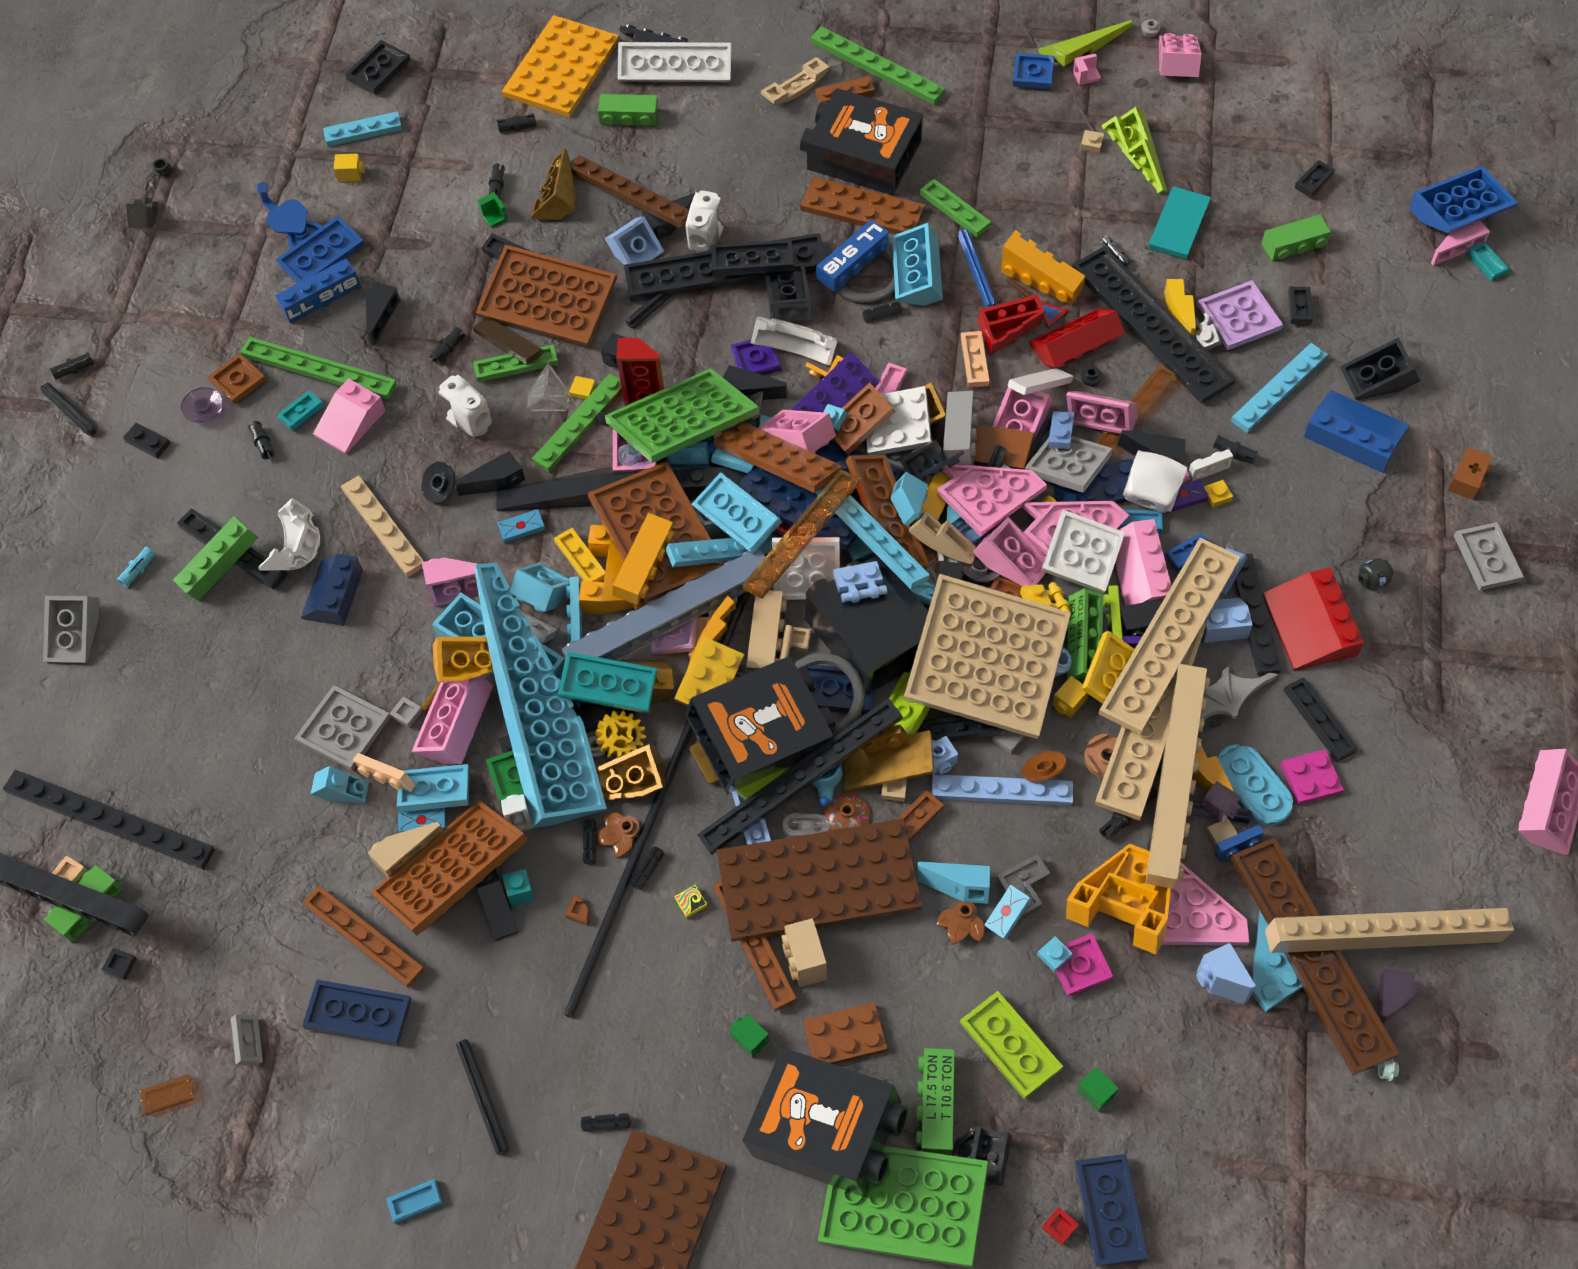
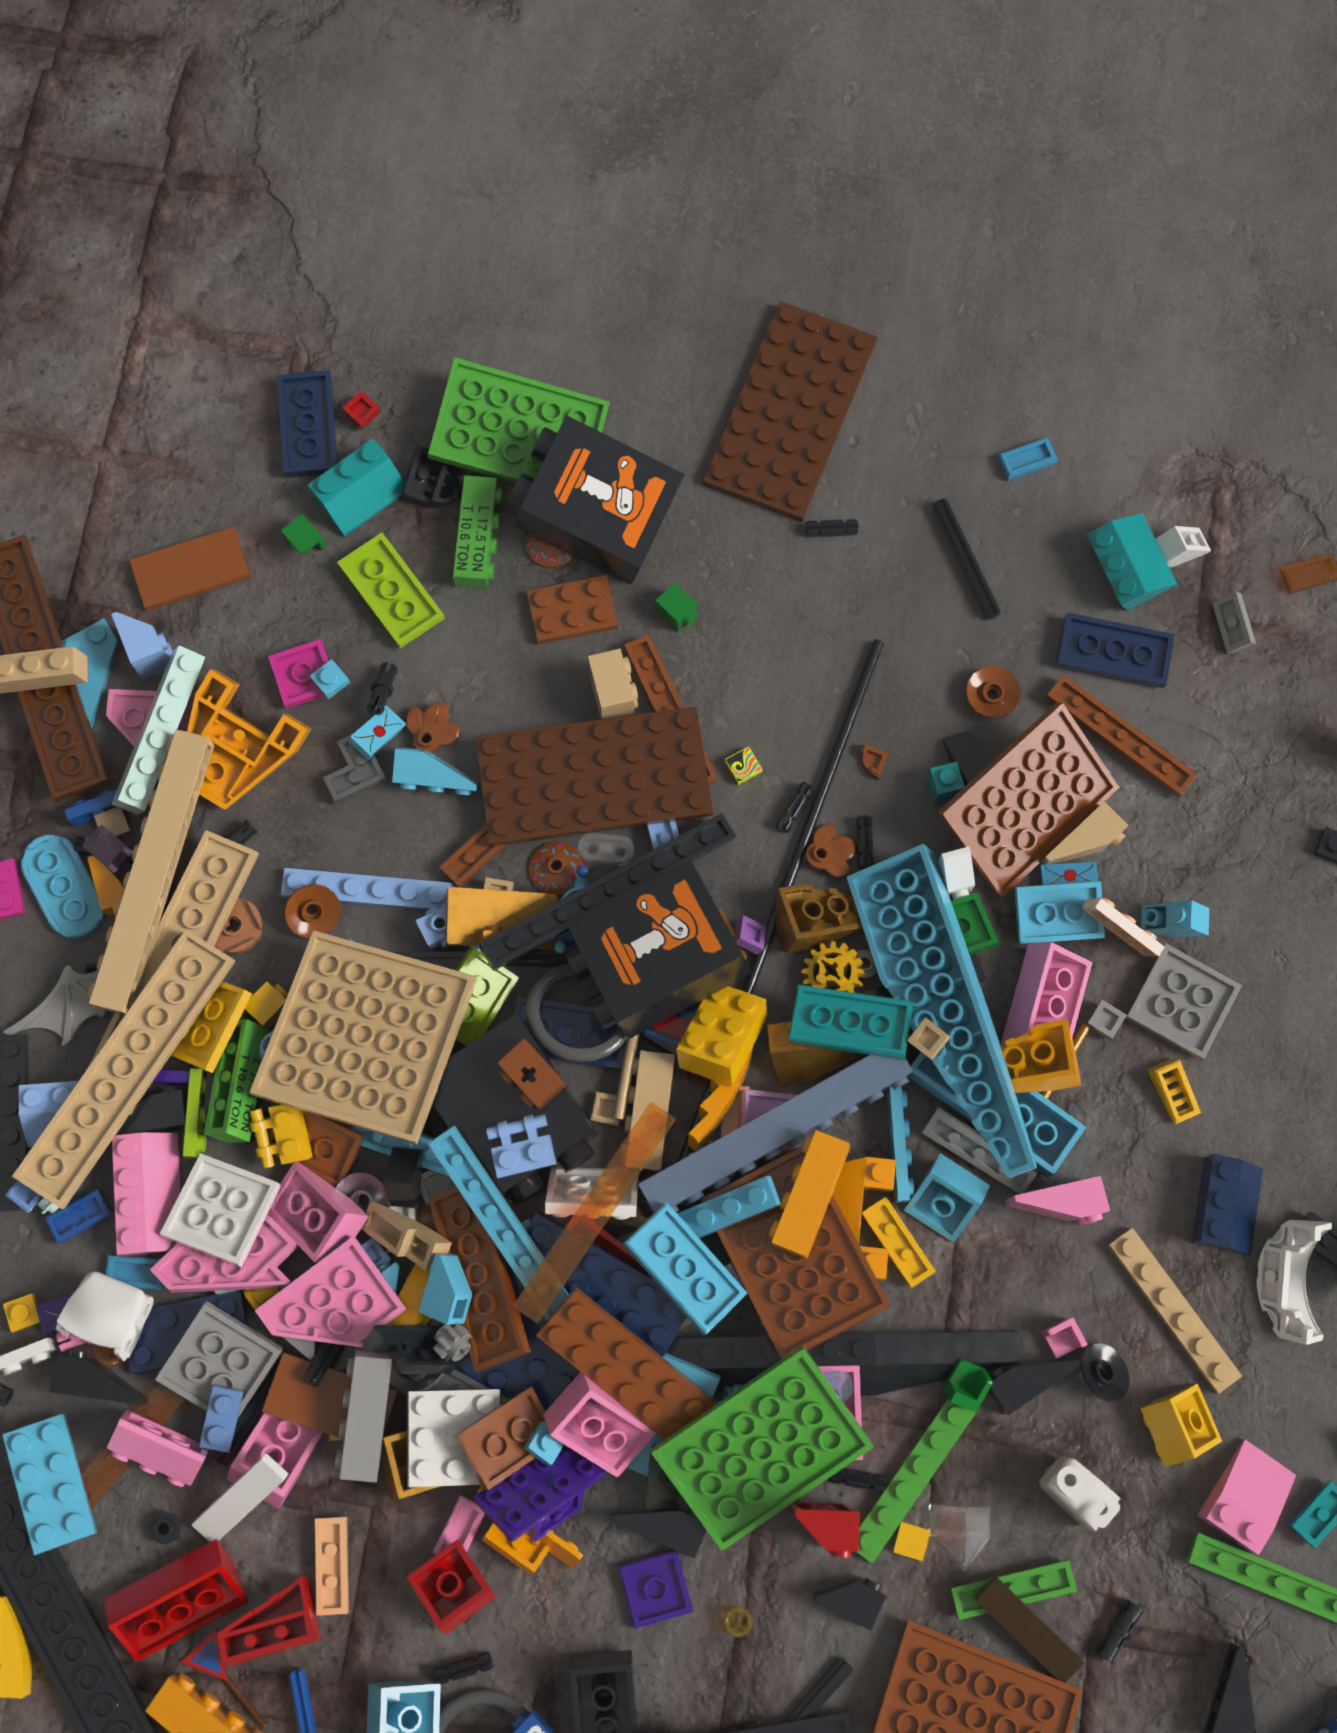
camera: 175 degrees right, 15 degrees up
(283, 1110) = (1182, 544): none -> white slope
(331, 1089) = (1132, 560): none -> teal slope
(366, 678) = (1183, 1086): none -> yellow slope
(388, 454) = (1181, 1425): none -> yellow slope
(465, 505) = (1063, 1337): none -> bright pink panel
(465, 959) = (993, 680): none -> dark orange dish
(521, 526) = (982, 1300): dark azure tile -> none
(536, 469) = (967, 1385): none -> green panel
(547, 663) = (928, 1038): none -> tan plate
(686, 762) = (750, 934): none -> medium lavender plate
(700, 347) = (745, 1627): none -> clear yellow bush
(794, 339) = (595, 1619): white windscreen -> none
(854, 624) = (525, 1057): none -> dark orange brick
(891, 345) = (451, 1587): none -> red slope
(901, 466) = (452, 1342): none -> light grey gear
(1008, 950) = (382, 688): none -> black pin
(1053, 1142) = (357, 487): none -> teal slope
(1174, 392) = (49, 1484): none -> medium azure plate
(1195, 896) = (158, 727): none -> light aqua brick
(1198, 1061) = (190, 568): none -> dark orange tile

